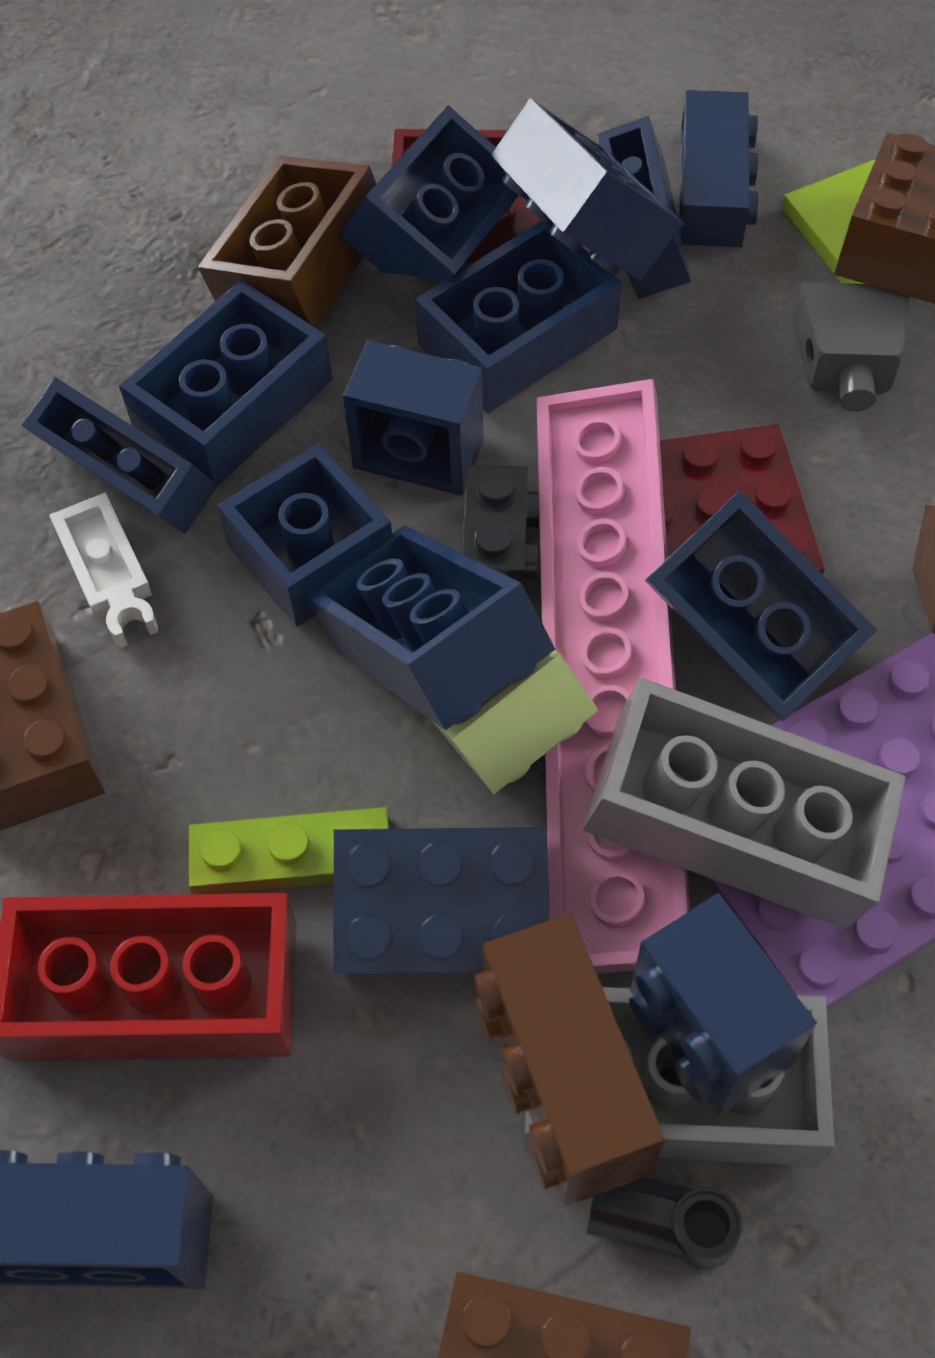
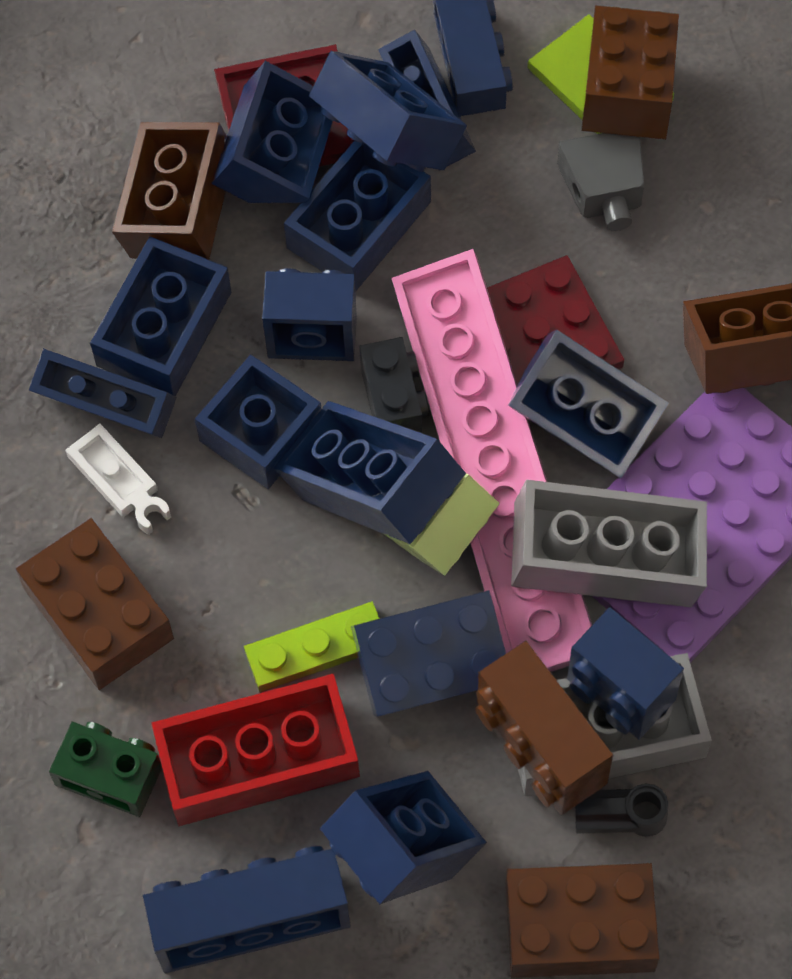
camera: 15 degrees left, 5 degrees up
(302, 1174) = (402, 836): none -> dark blue brick

